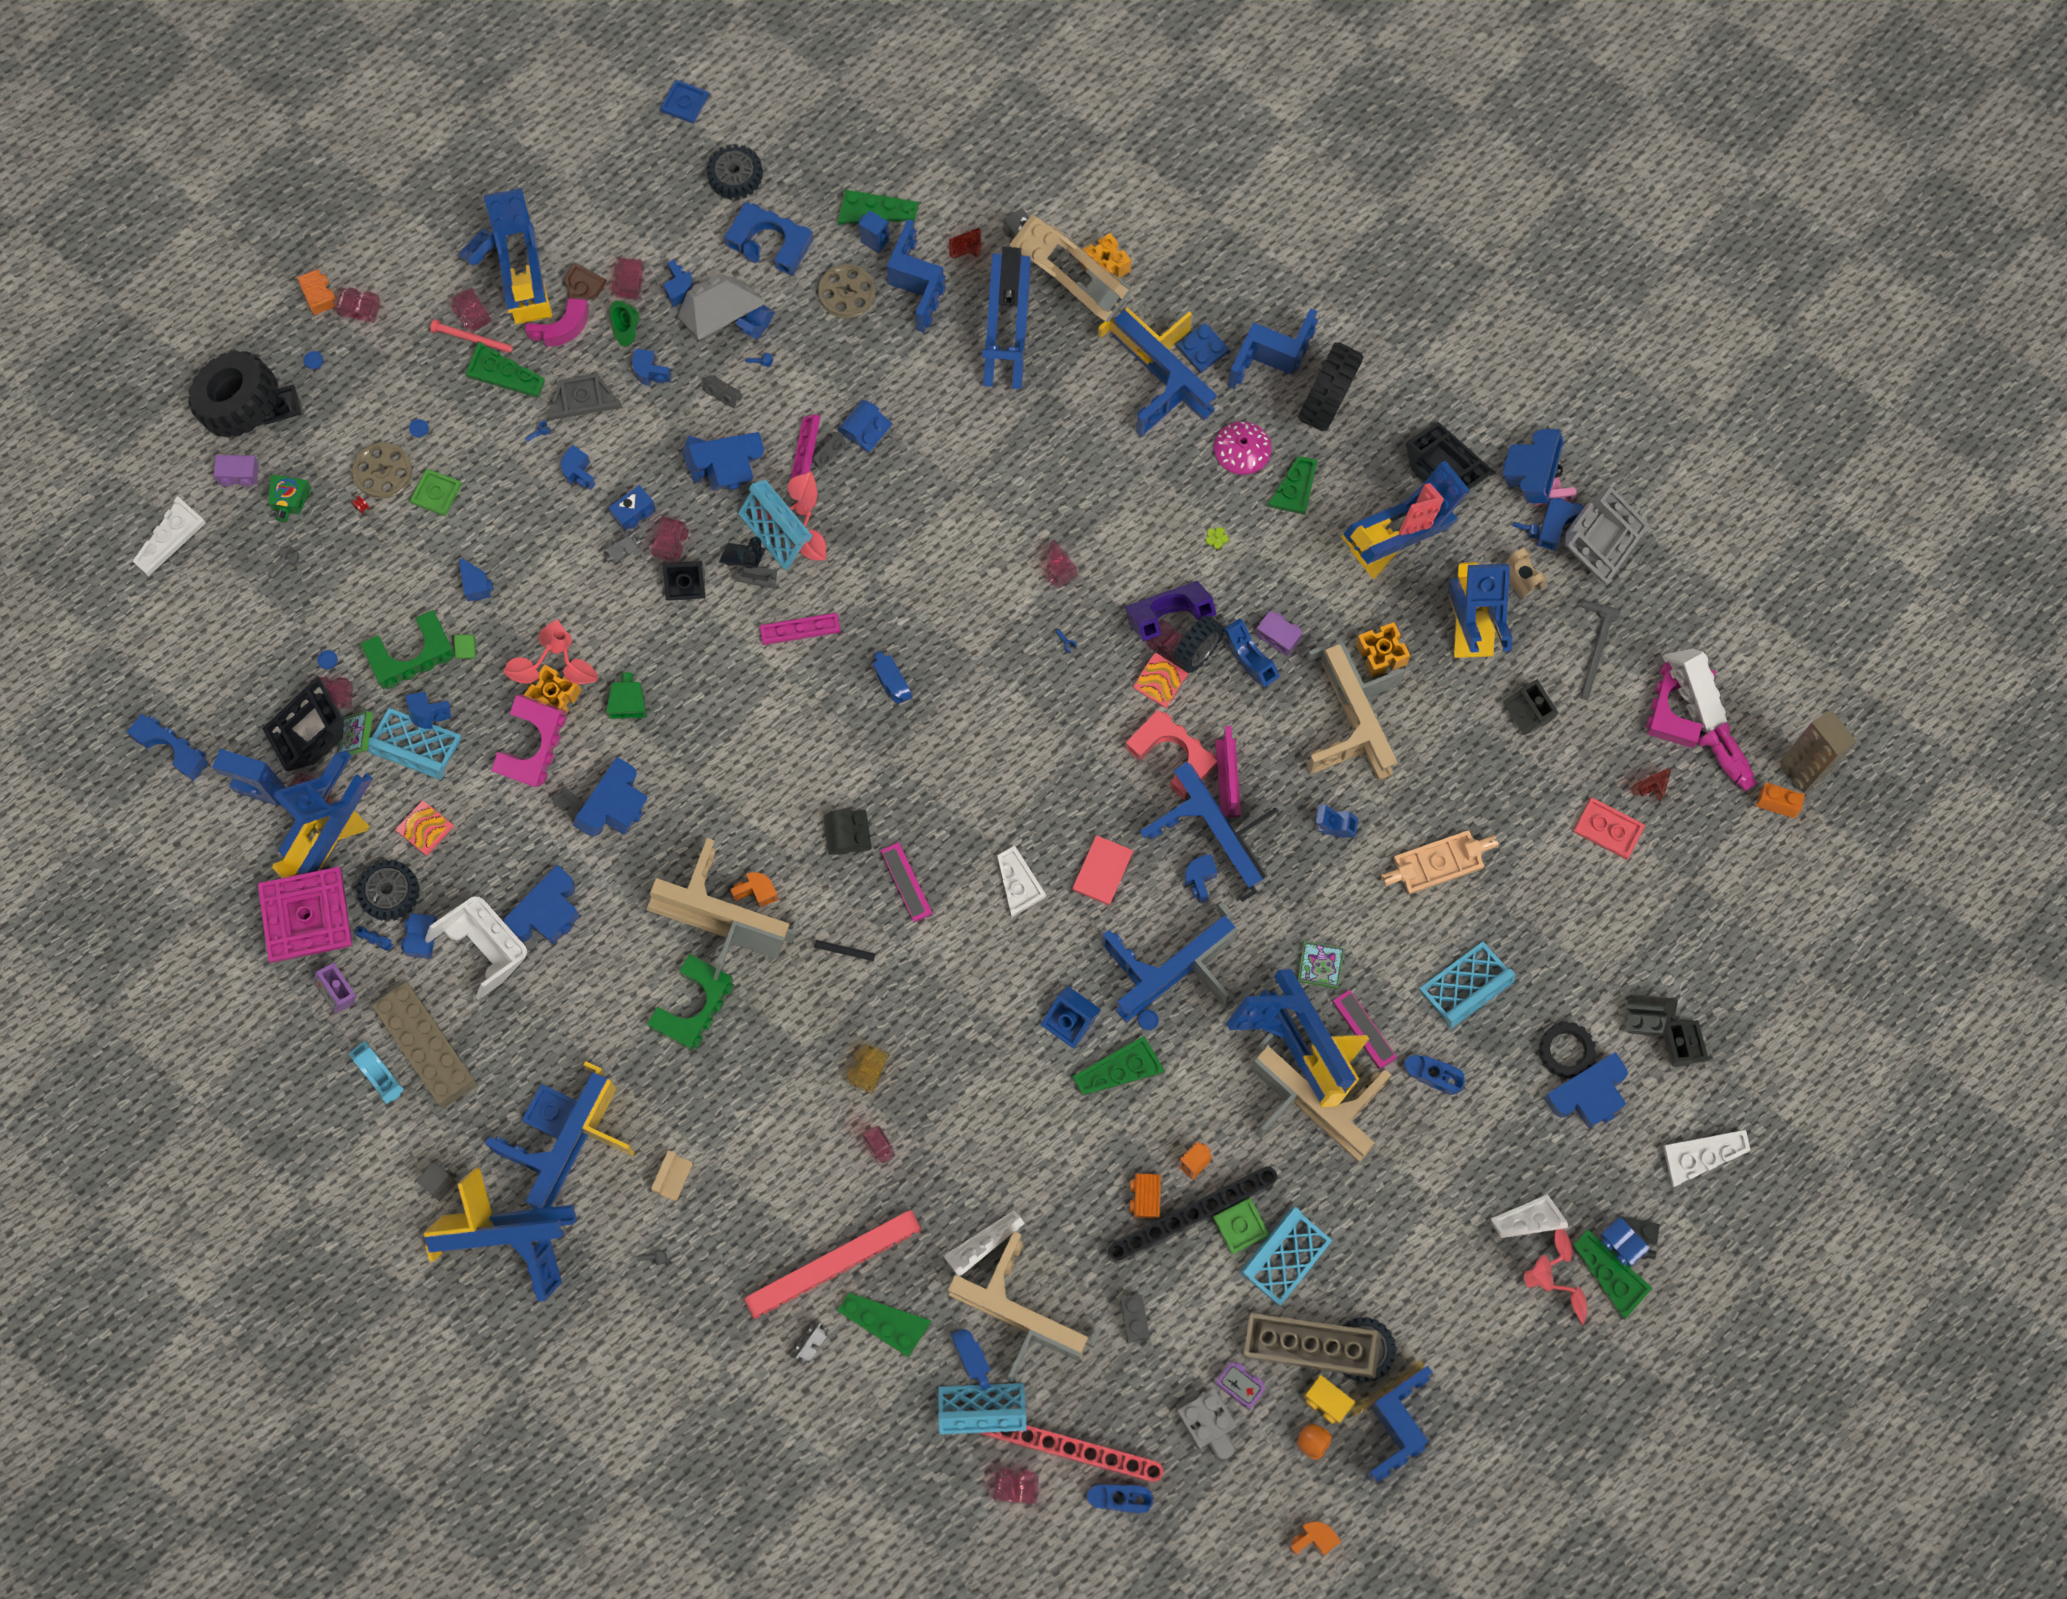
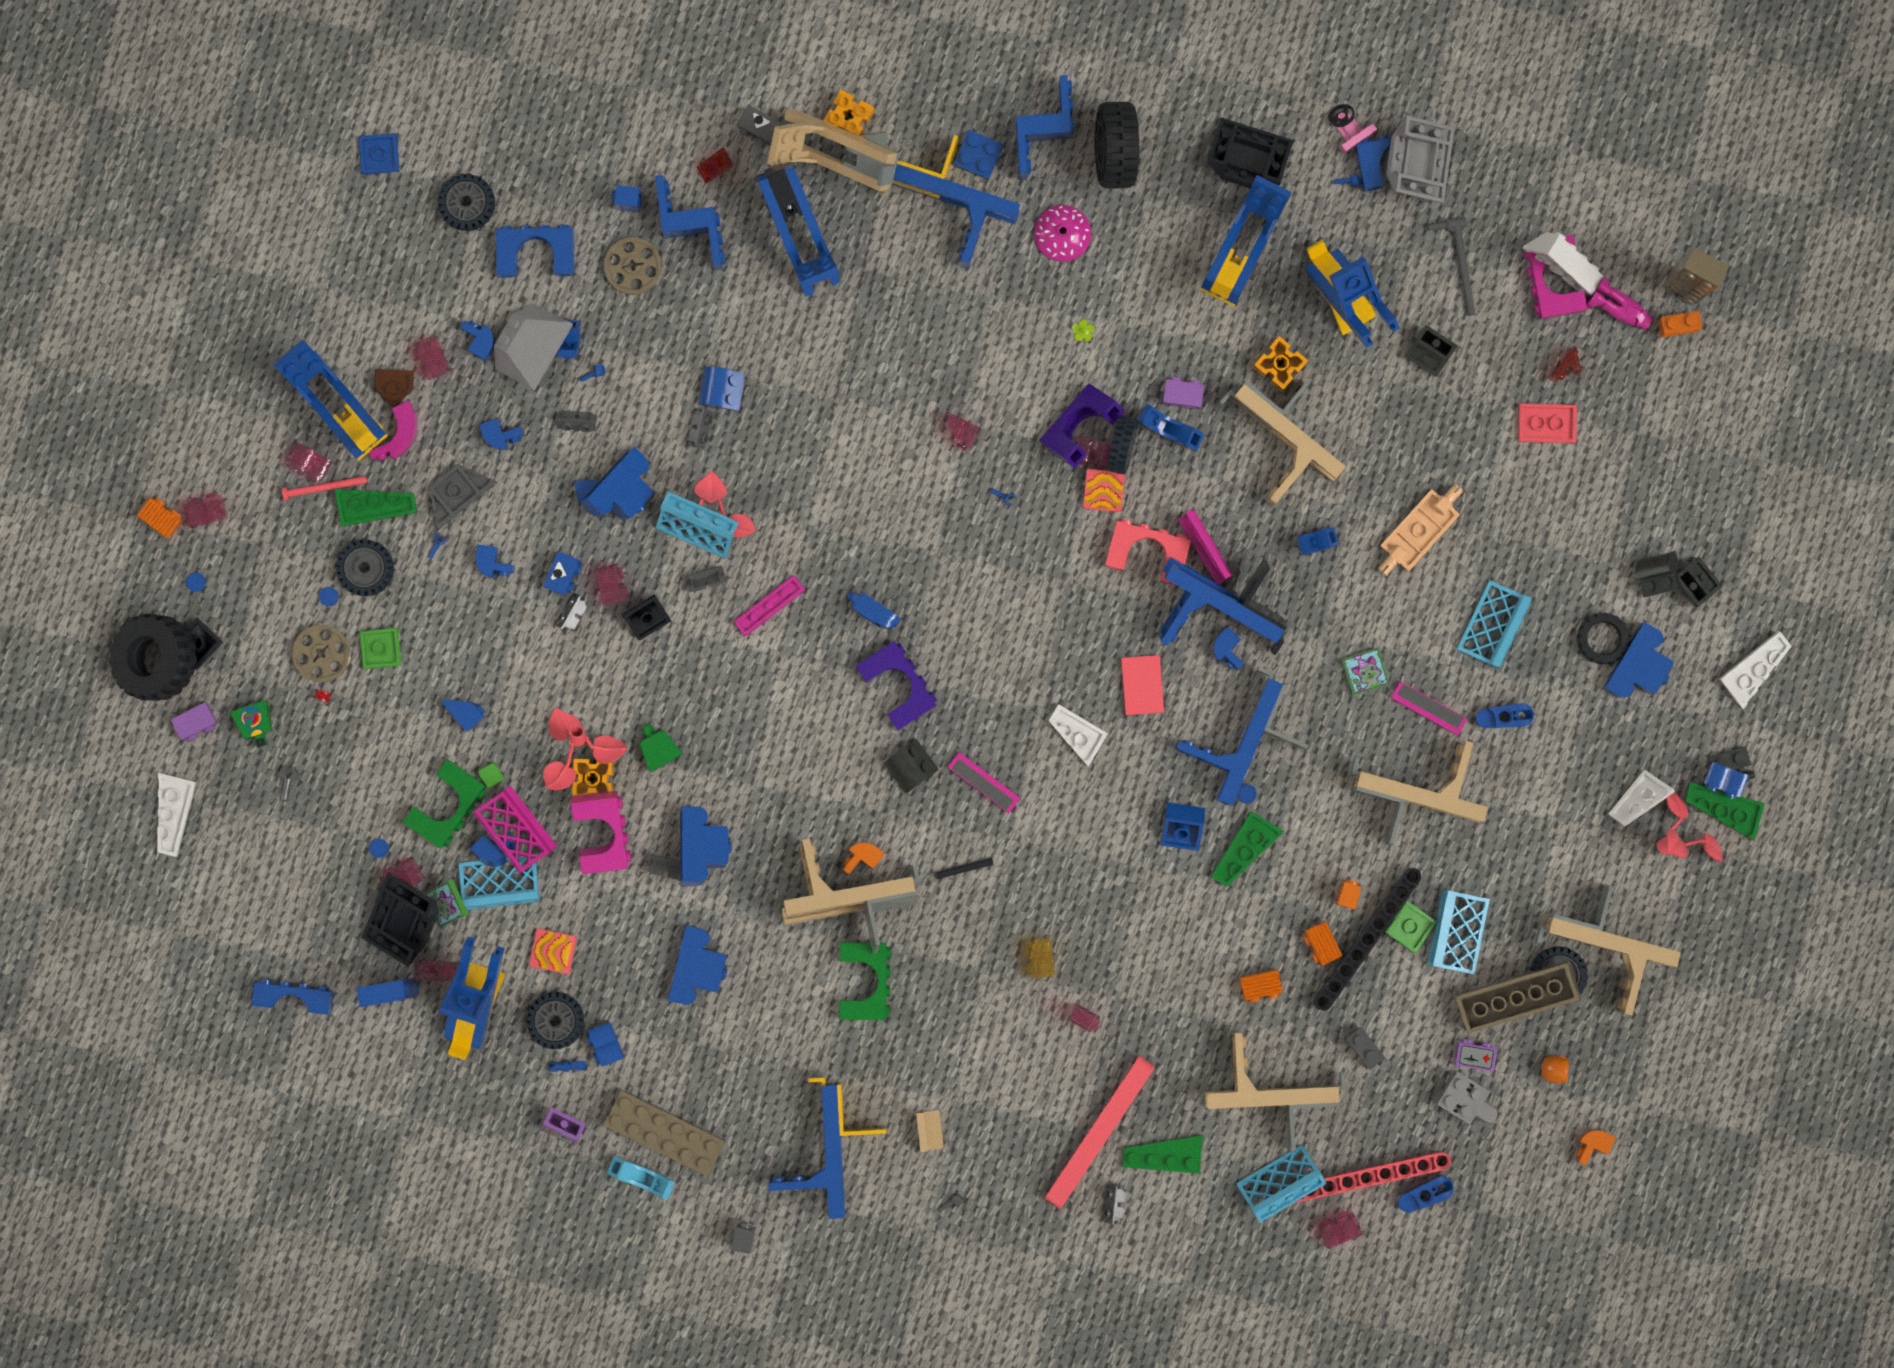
camera: 25 degrees left, 15 degrees up
(305, 915) = (484, 1085): dark pink piece -> none
(461, 405) = (350, 565): none -> wheel
(471, 701) = (528, 824): none -> dark pink fence
(477, 247) = (280, 401): blue plate -> none
(489, 934) = (667, 1015): white windscreen -> none
(519, 1228) = (844, 1242): blue piece -> none
(549, 1111) = (800, 1131): blue plate -> none
(624, 322) = (452, 402): green piece -> none
(743, 555) = (683, 566): black hinge -> none
(752, 251) = (526, 272): blue tile -> none
(805, 445) = (682, 441): dark pink tile -> none
(887, 777) = (892, 658): none -> dark purple arch
(892, 209) = (606, 173): green wing -> none
(971, 1356) = (1251, 1147): blue piece -> none
(981, 1244) = (1208, 1058): white wing -> none
(1065, 1205) = (1261, 985): none -> orange brick
(1296, 487) = (1129, 247): green wing -> none
(1328, 1400) = (1550, 1030): yellow brick -> none
(1330, 1067) = (1416, 764): blue piece -> none
(1367, 1402) = (1592, 996): clear yellow tile -> none
(1400, 1425) = (1617, 1022): blue bracket -> none
(1422, 513) = (1259, 224): coral bracket -> none
(1451, 1361) = (1634, 952): none -> tan piece
(1523, 575) = (1366, 230): tan piece -> none
(1534, 465) = (1328, 121): blue brick -> none

